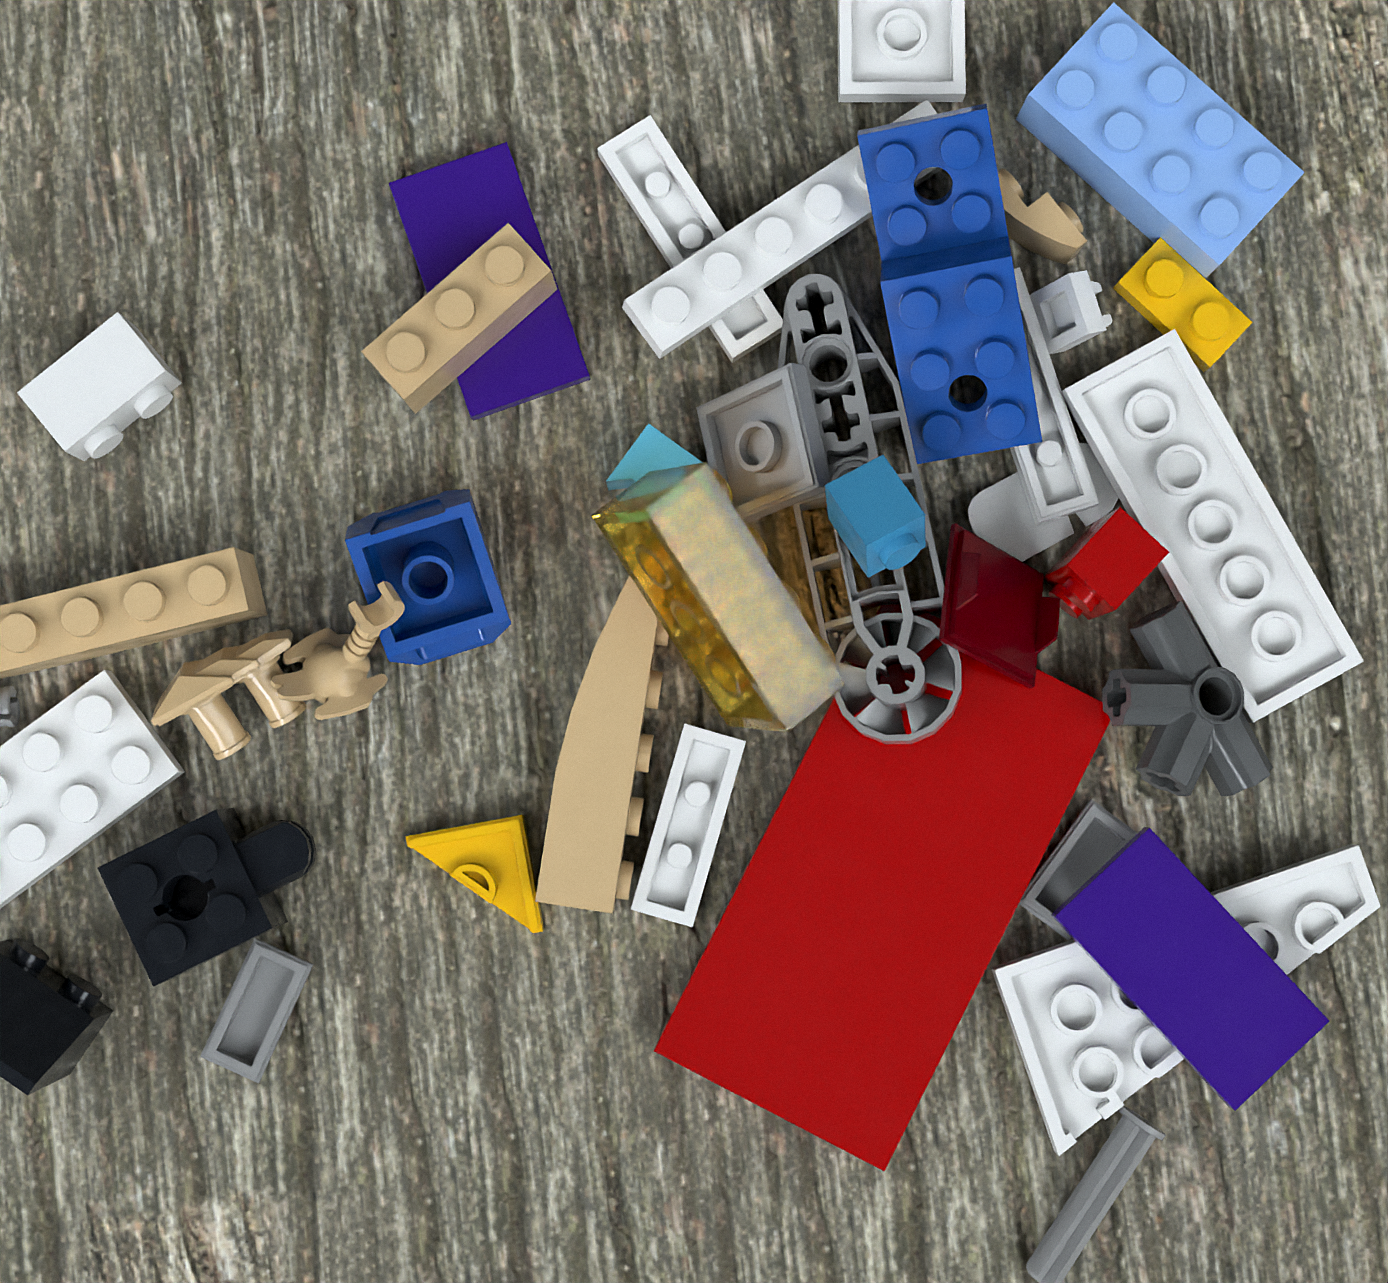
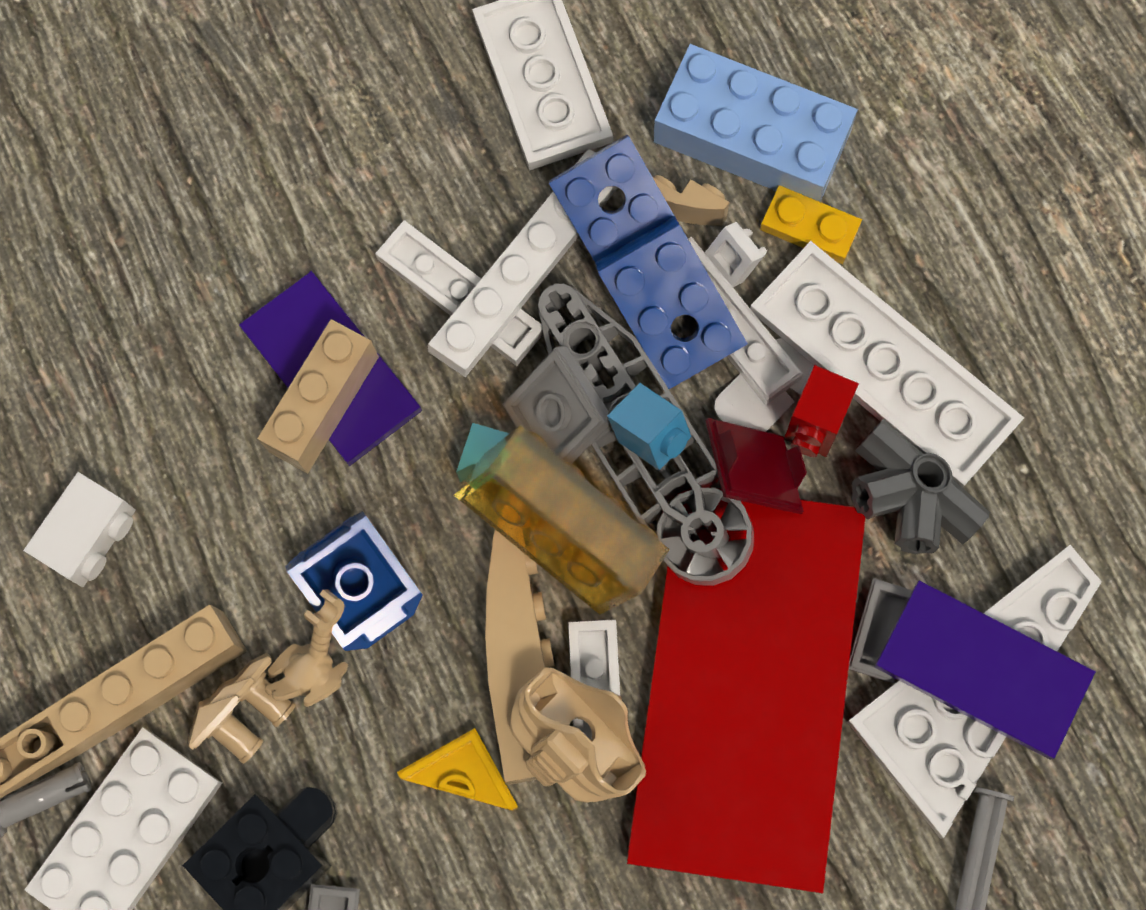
camera: 10 degrees left, 10 degrees down
(646, 927) = (562, 753): none -> tan piece

